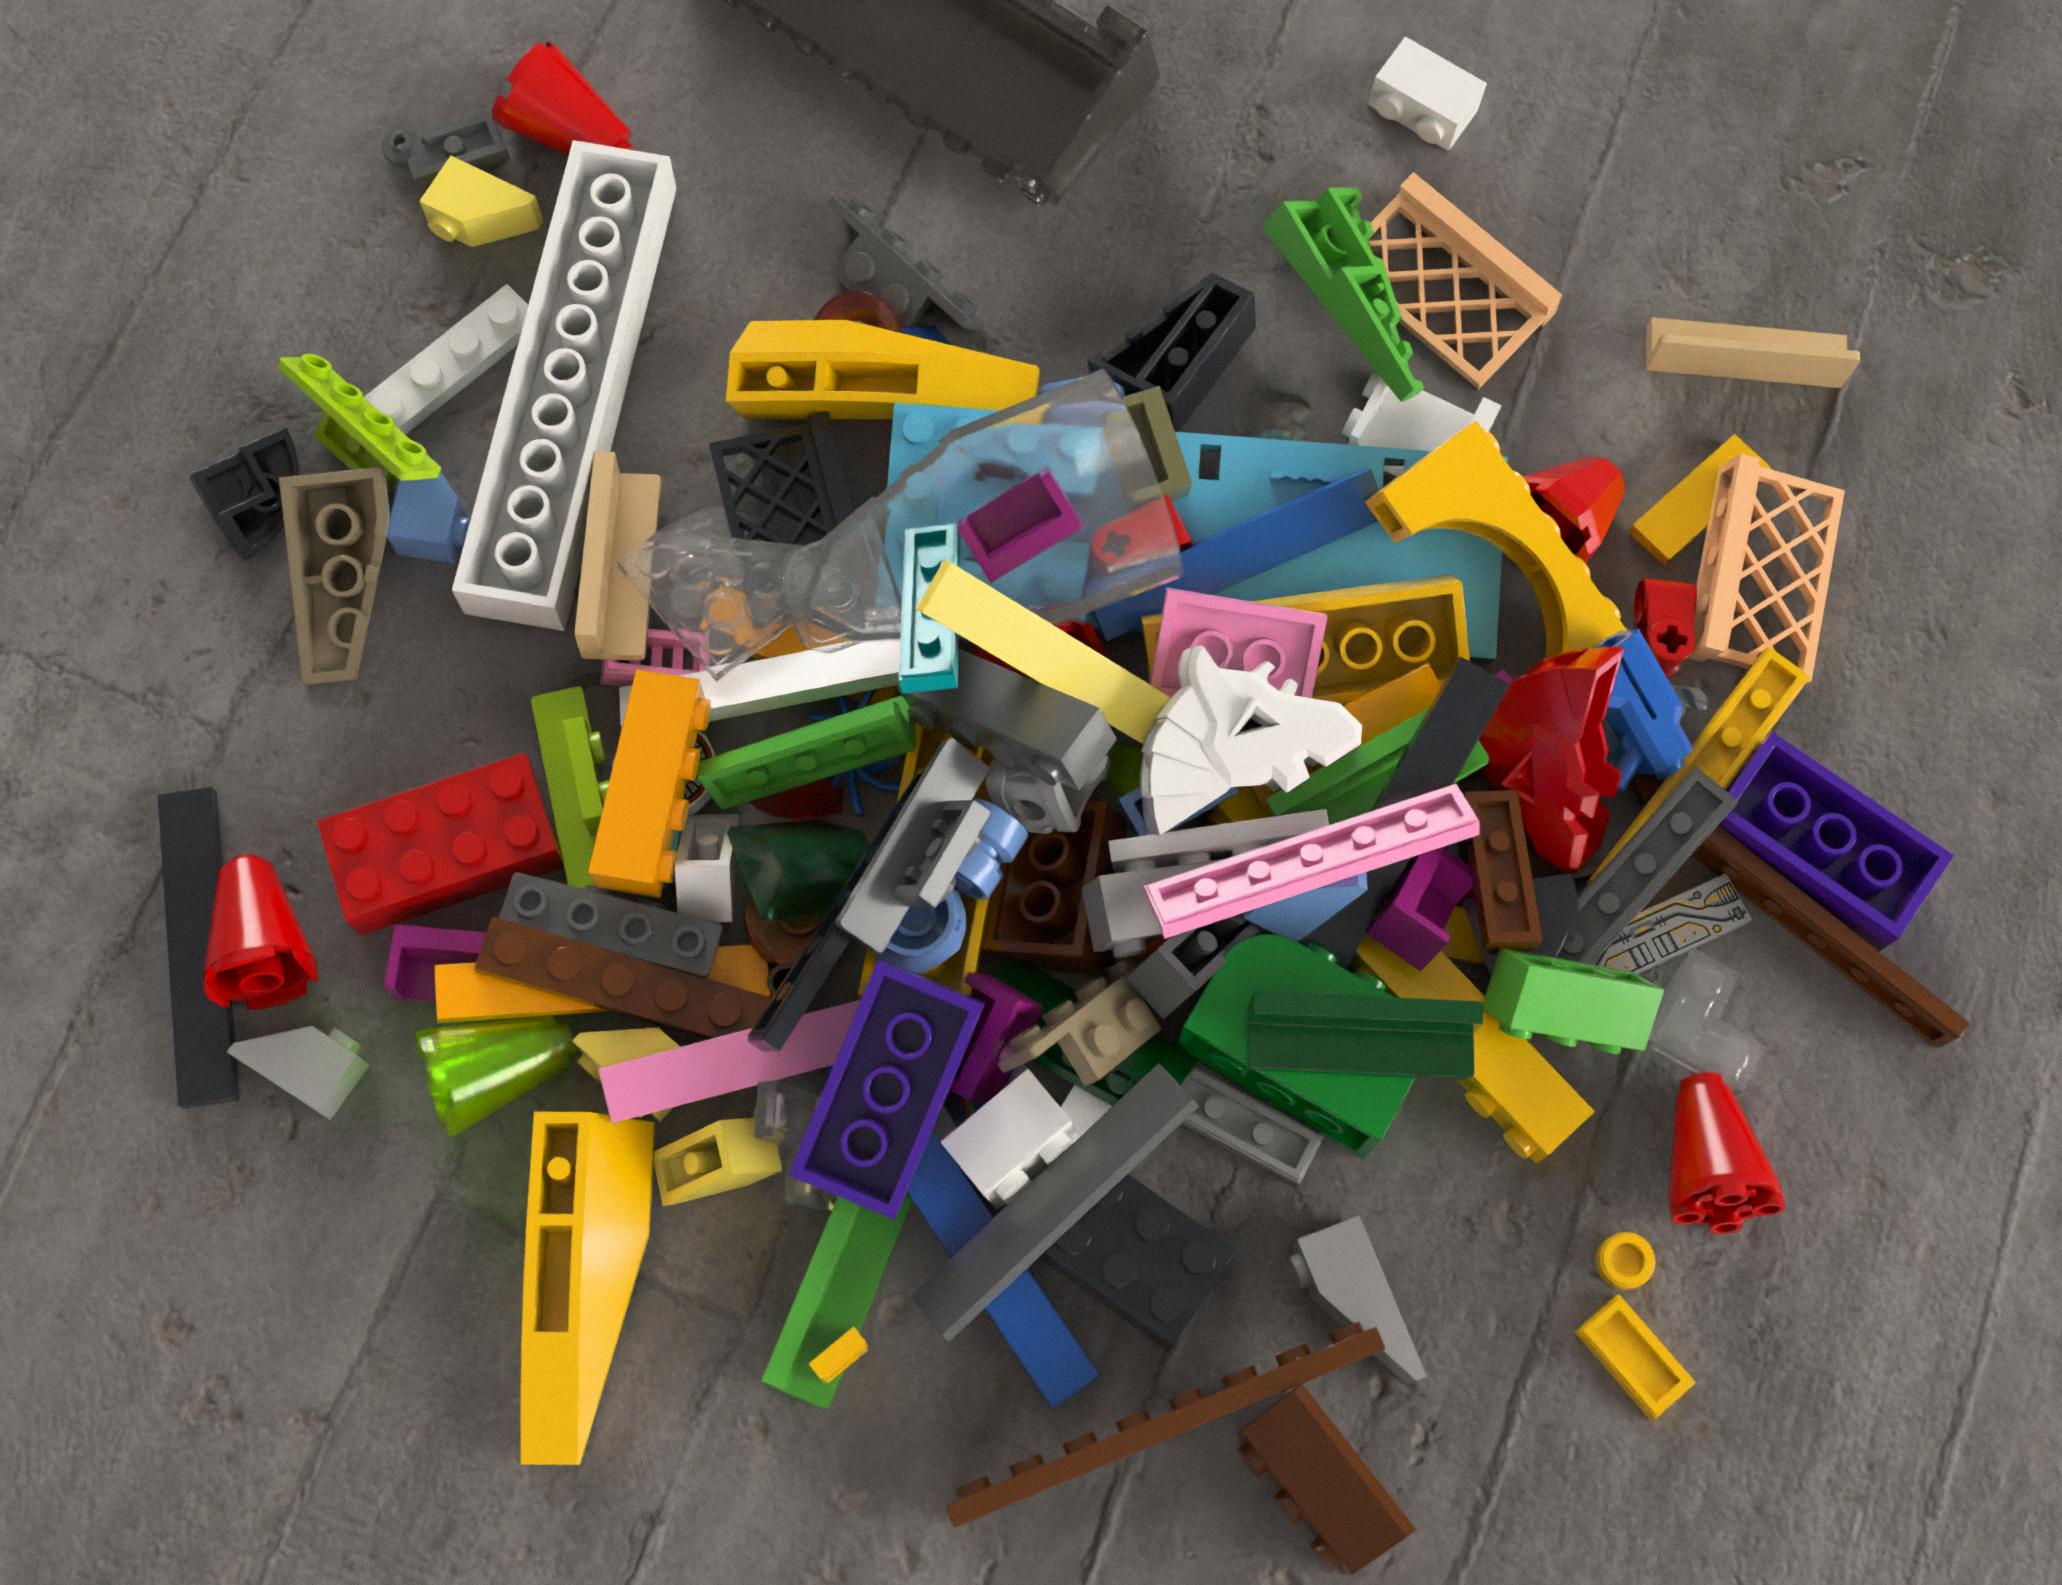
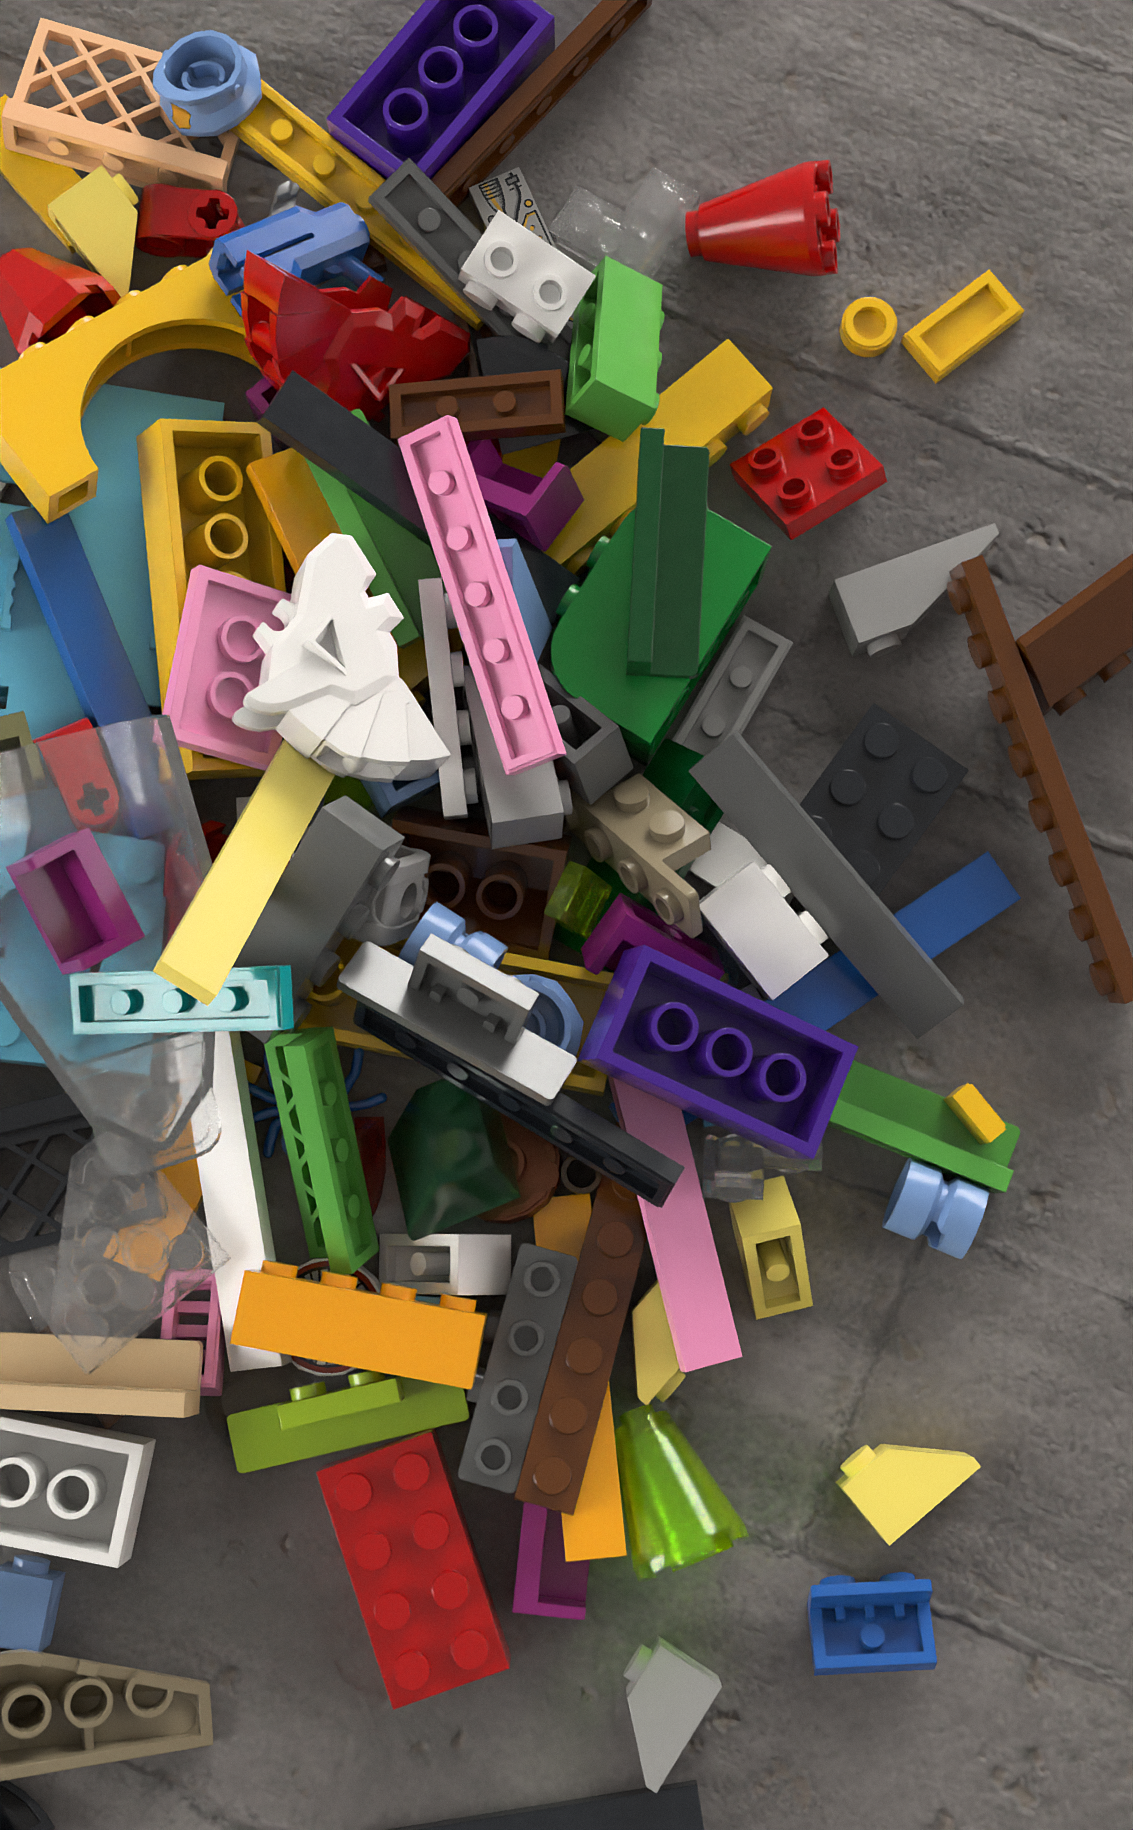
camera: 85 degrees left, 10 degrees up
(255, 939) = (519, 1773): red cone -> none
(363, 1255) = (871, 1625): none -> blue bracket
(488, 1281) = (902, 1483): none -> light yellow slope
(579, 1270) = (885, 1388): yellow wedge -> none
(749, 1316) = (935, 1208): none -> medium blue wheel
(1038, 972) = (578, 899): none -> clear neon green tile
(1466, 1194) = (808, 473): none -> red plate
(1630, 909) = (524, 279): none -> white brick
(1648, 547) = (100, 225): none -> light yellow slope
(1796, 630) = (207, 83): none -> medium blue hat

